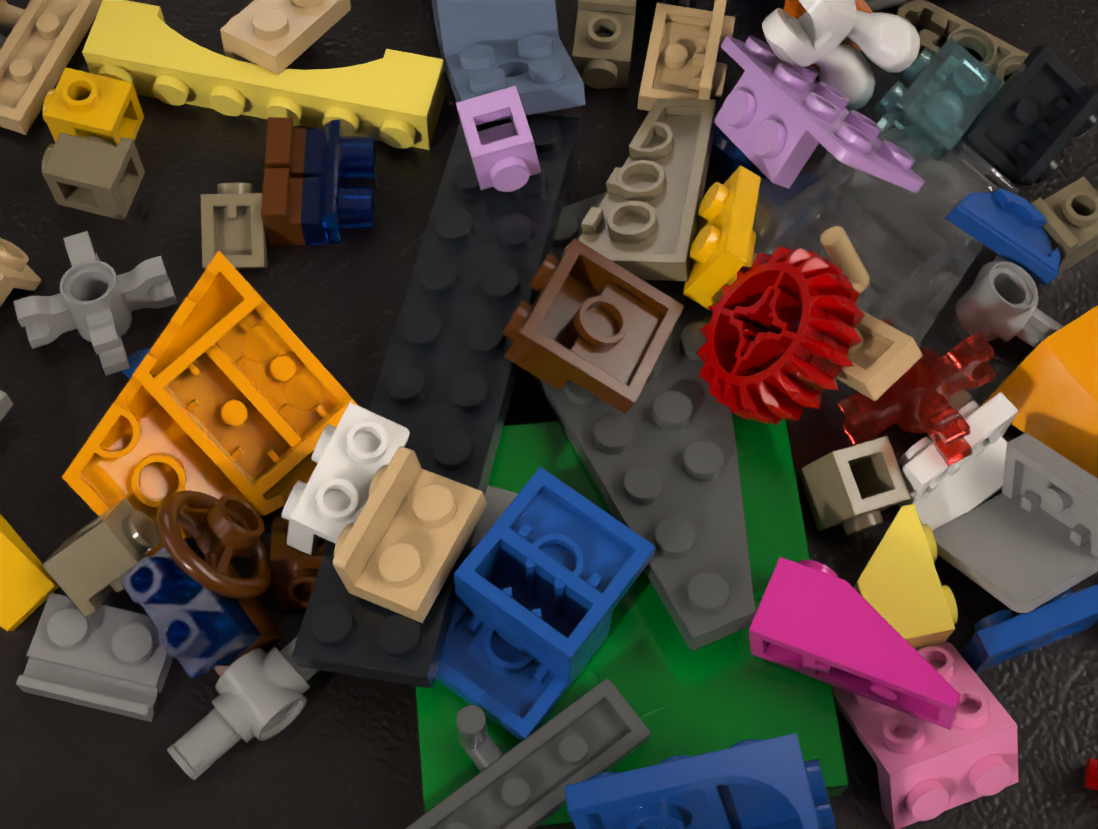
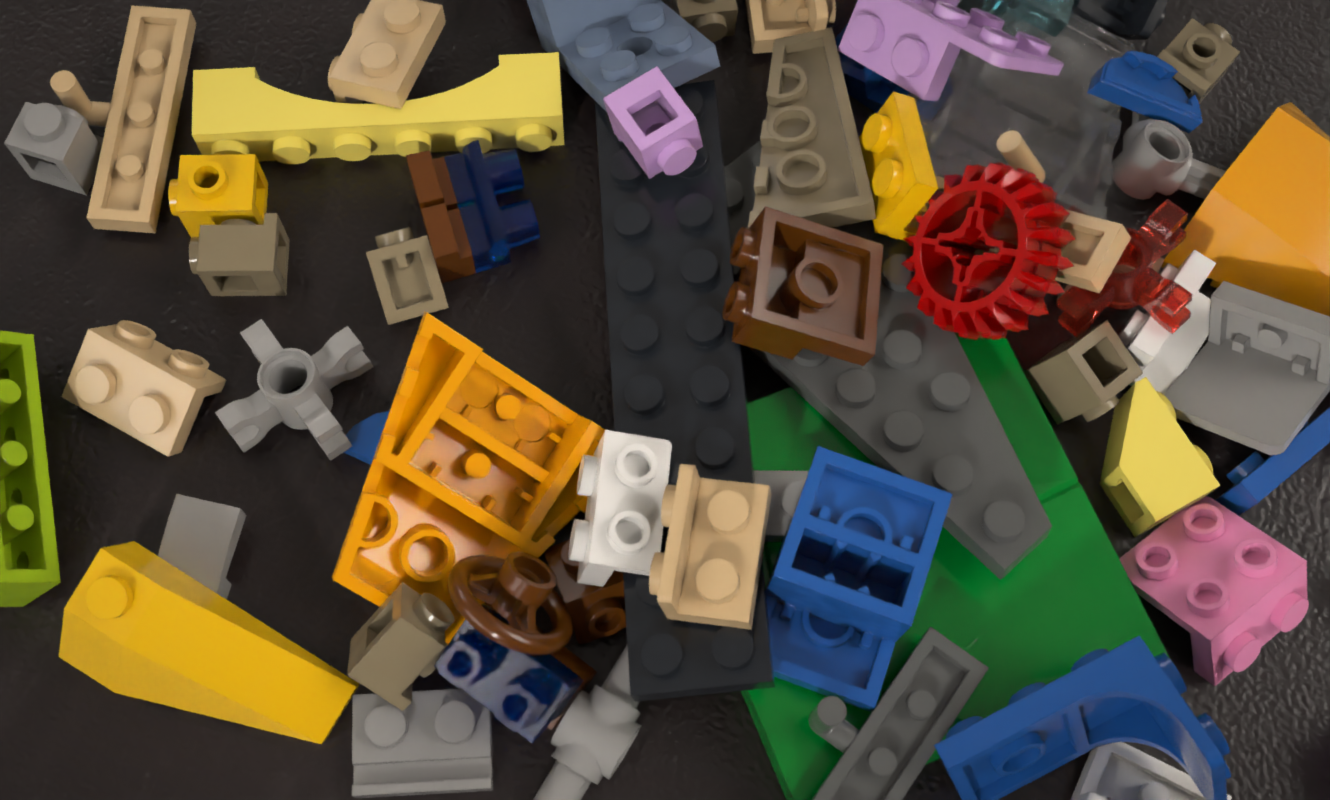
camera: 20 degrees left, 5 degrees up
(835, 636) = (1128, 526): dark pink slope -> none

